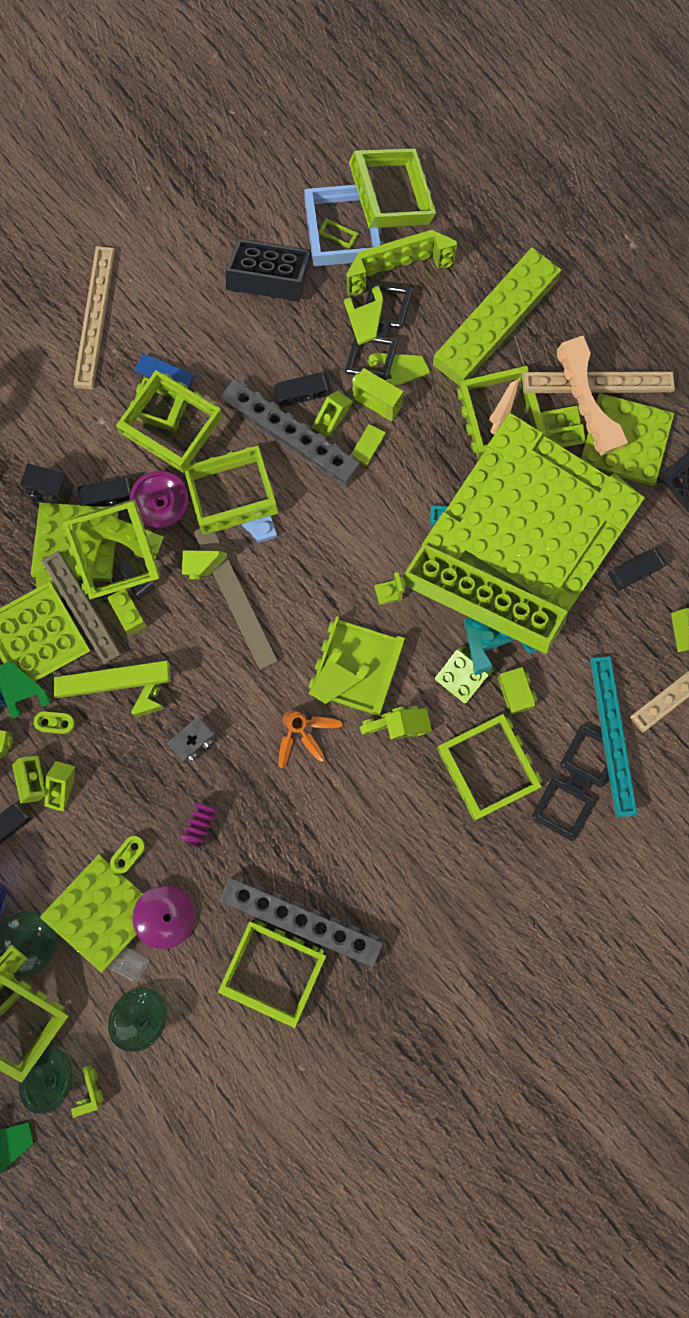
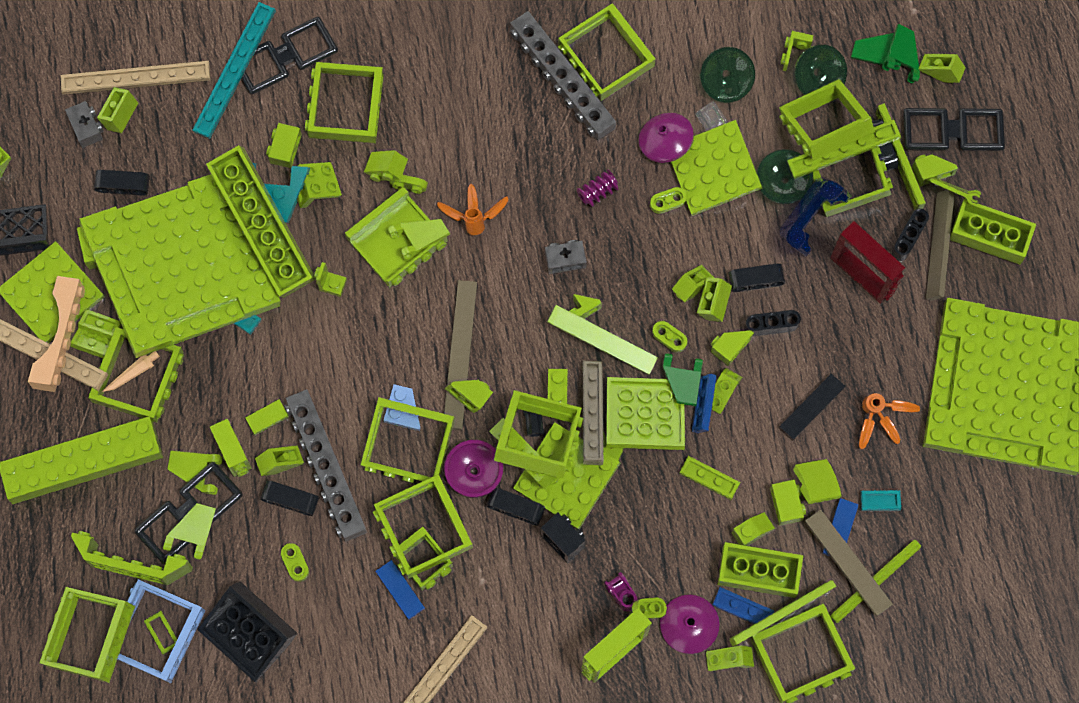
camera: 155 degrees left, 5 degrees down
(265, 343) = (295, 561): none -> lime plate

